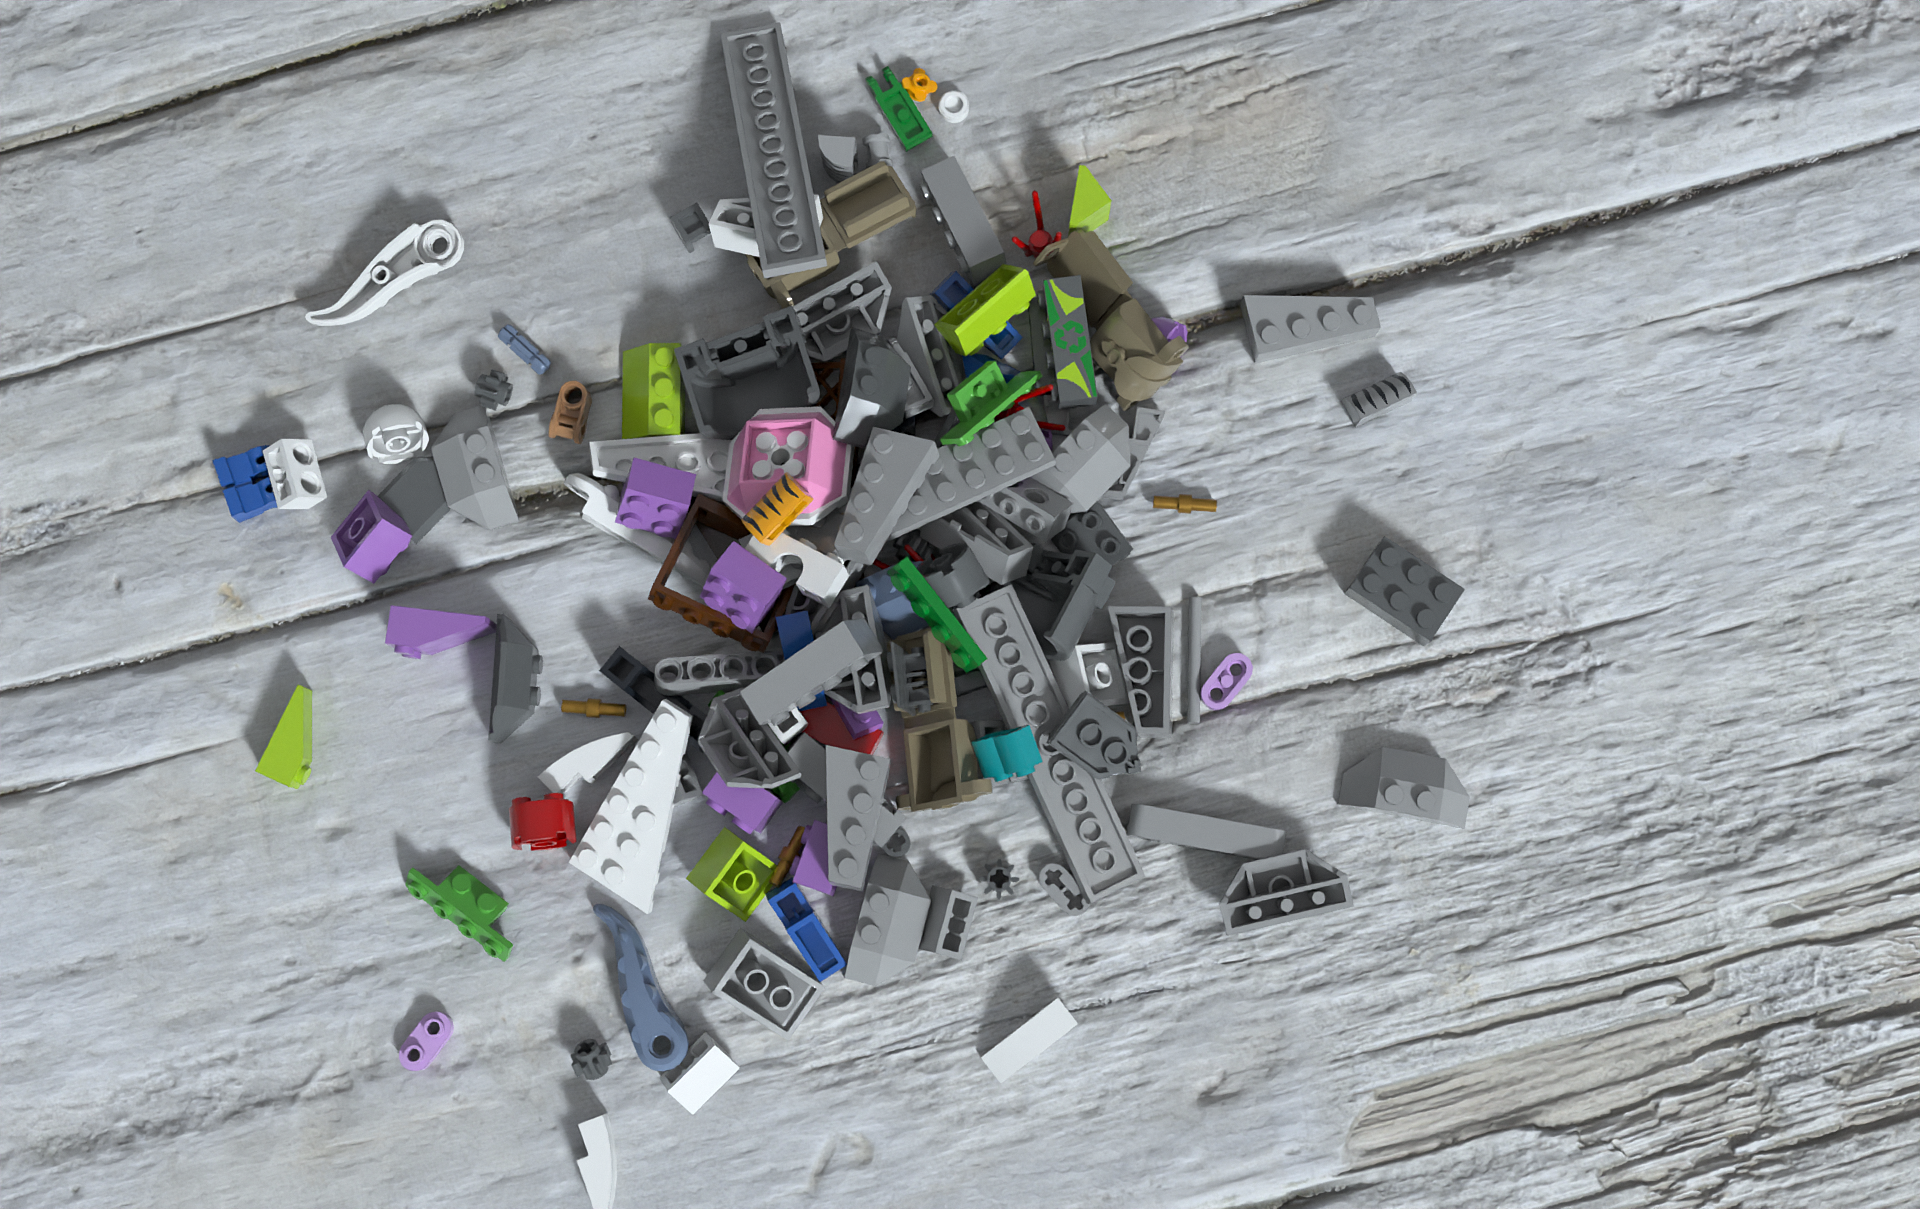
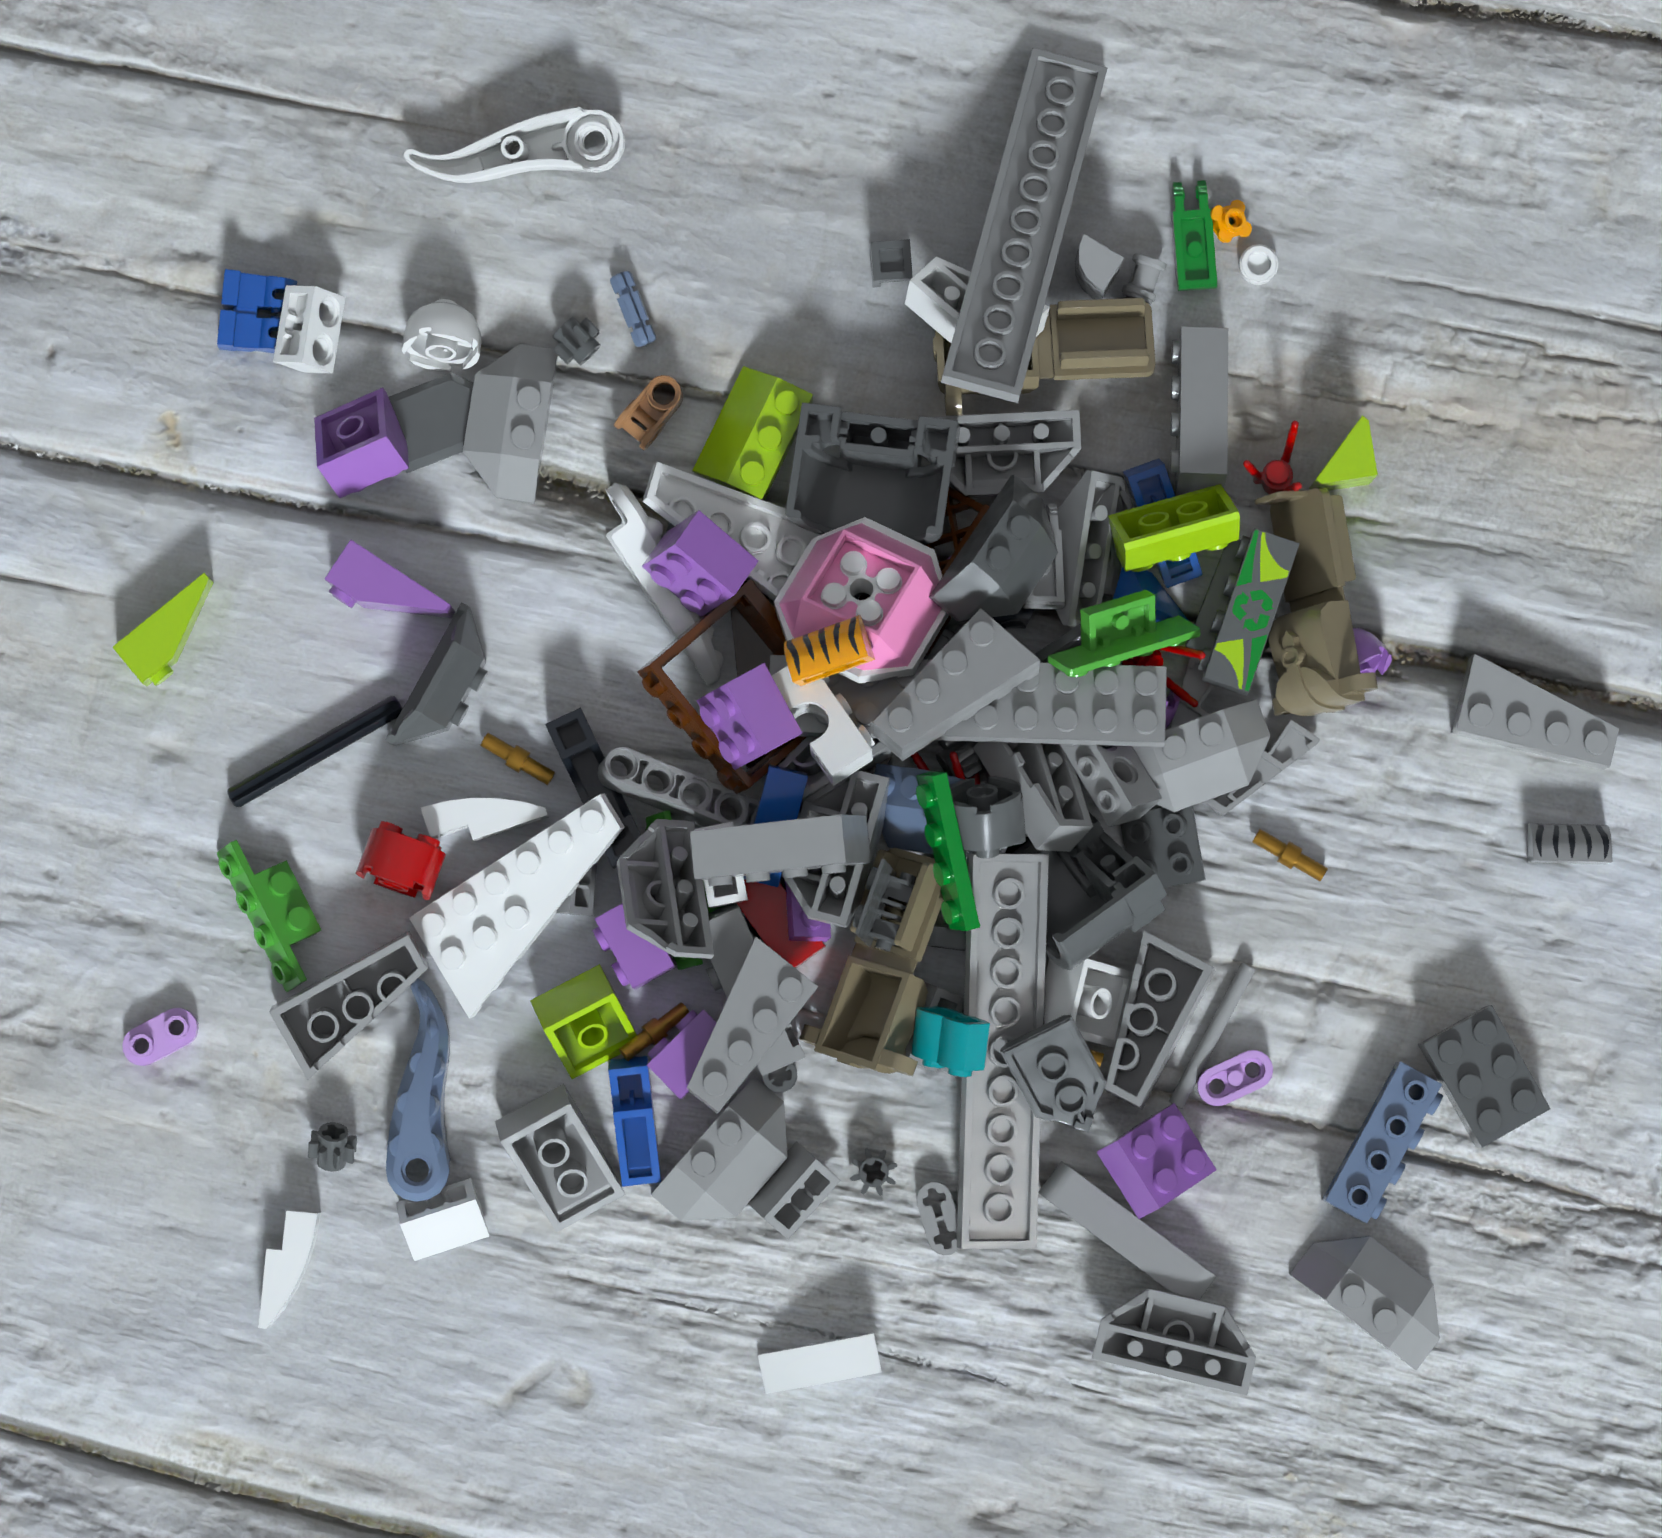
camera: 20 degrees right, 5 degrees up
(442, 776) = (315, 751): none -> black axle
(546, 953) = (338, 1007): none -> light grey wedge
(1201, 768) = (1156, 1161): none -> medium lavender brick
(1356, 675) = (1382, 1142): none -> sand blue brick

